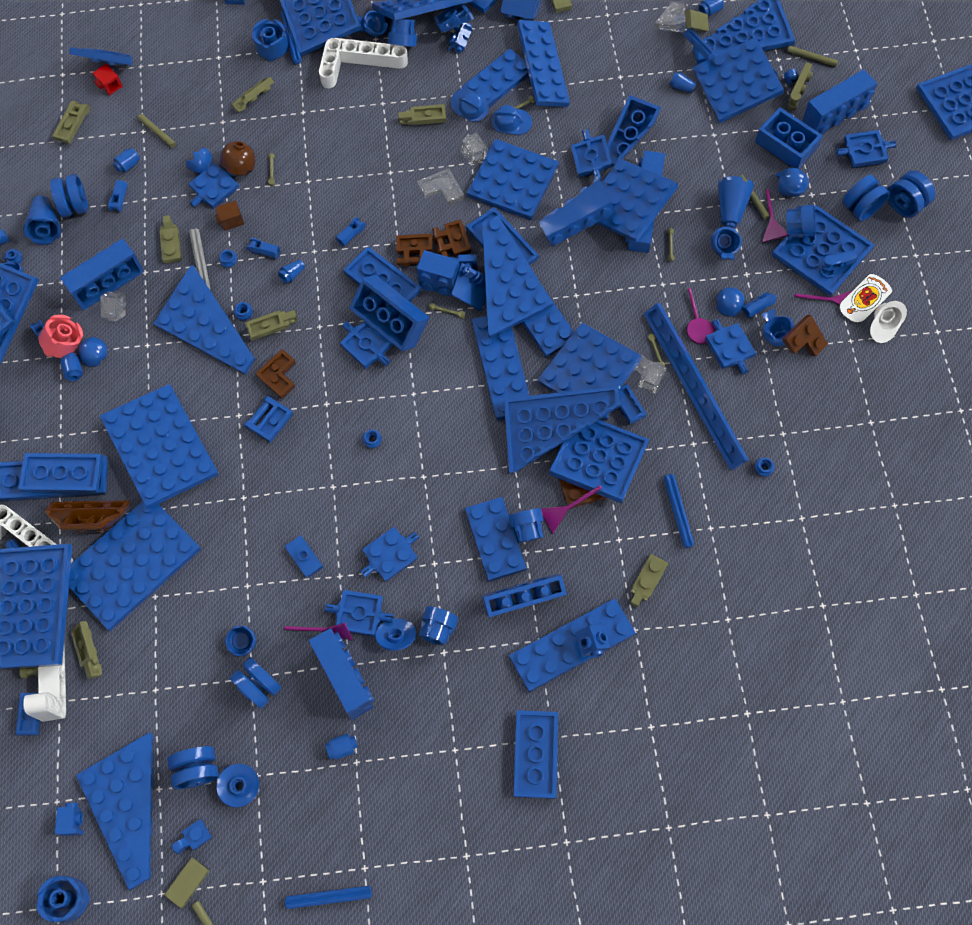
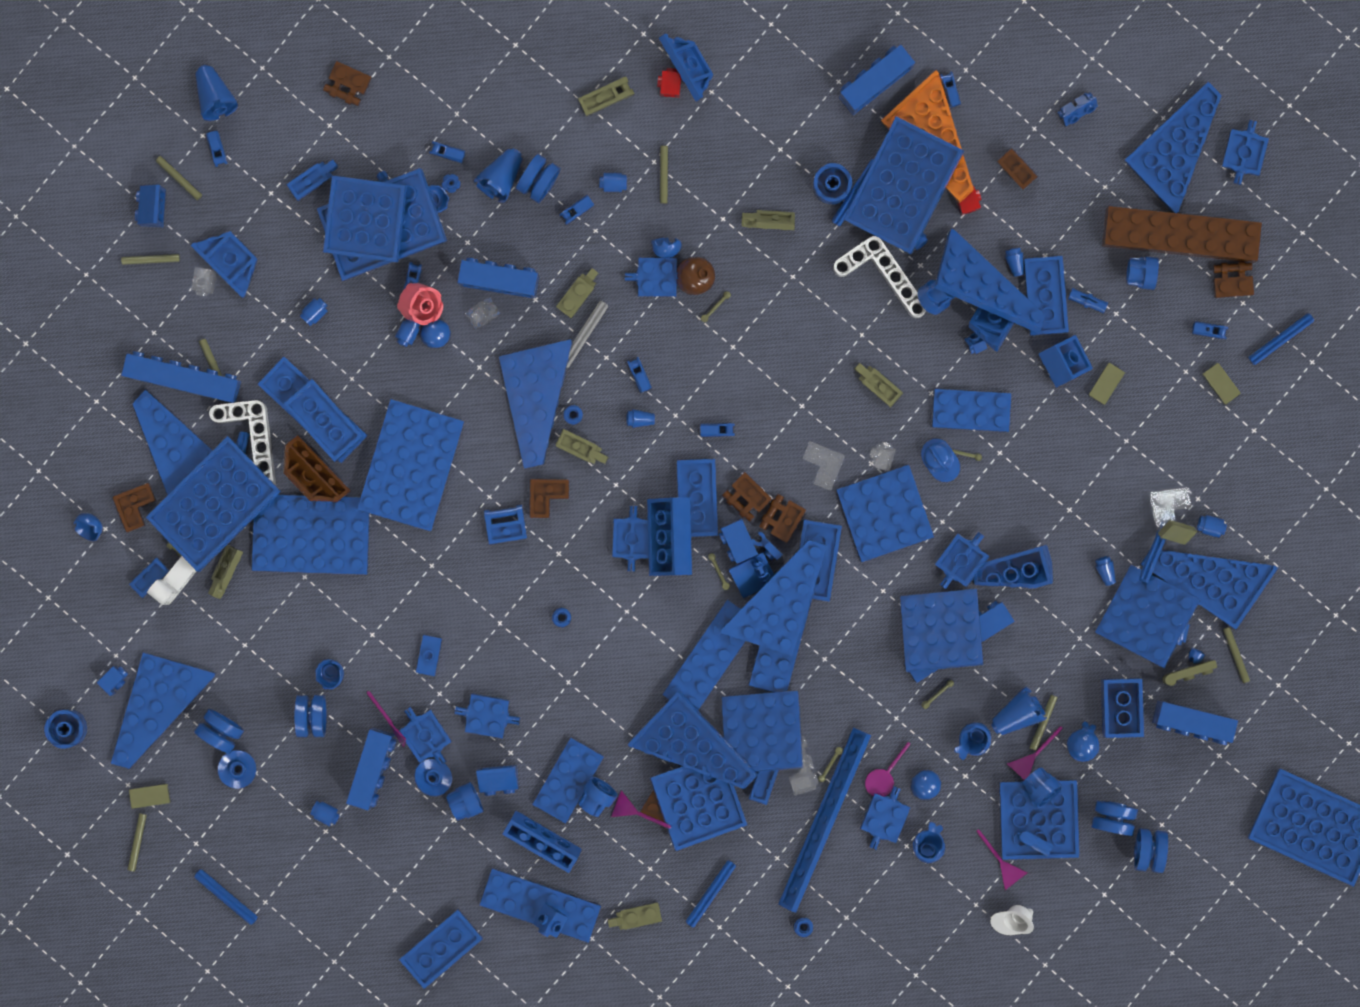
camera: 50 degrees right, 20 degrees up
(195, 836) = (181, 771): blue plate -> none
(227, 258) = (605, 356): blue plate -> none
(229, 215) = (641, 320): reddish brown brick -> none
(374, 24) = (929, 257): blue hair -> none
(444, 584) = (498, 779): none -> blue slope
(469, 104) = (923, 411): blue piece -> none
(543, 63) = (1020, 436): blue plate -> none
(578, 213) = (888, 605): blue wedge -> none
(759, 304) = (939, 809): blue bar -> none
(805, 333) = (942, 868): reddish brown plate -> none
(865, 298) = (1025, 886): sticker -> none
(866, 148) = (1173, 776): blue plate -> none

